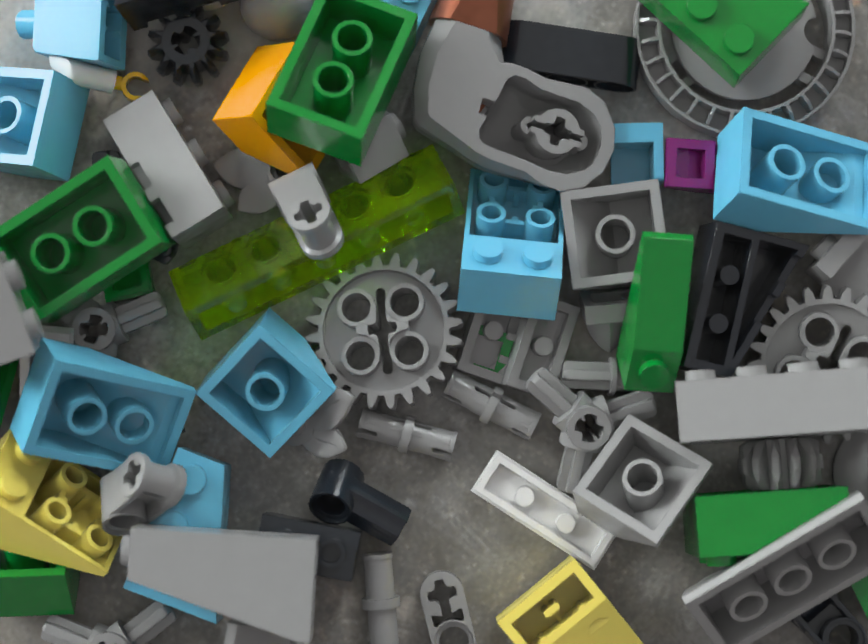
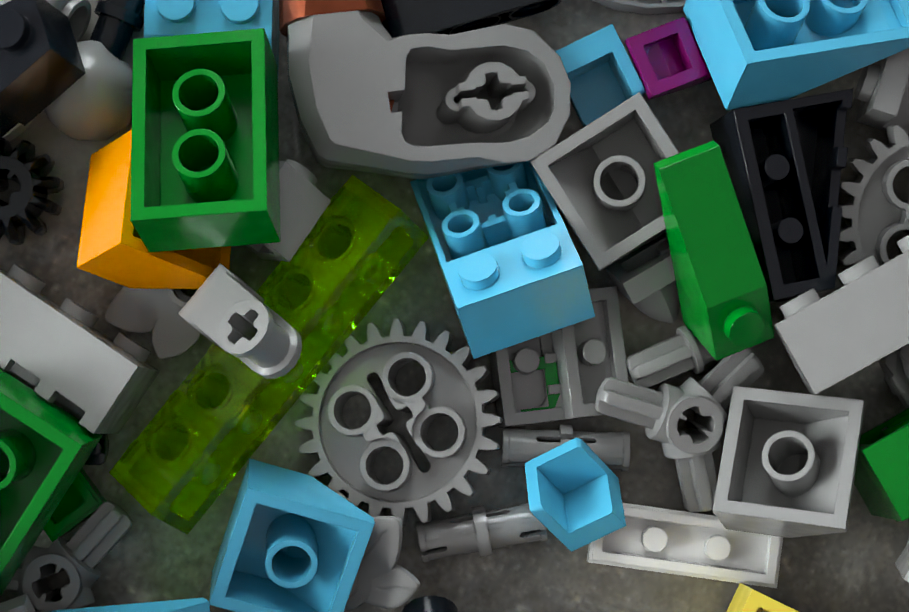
camera: 25 degrees left, 0 degrees up
(483, 437) = (574, 494): none -> medium azure panel

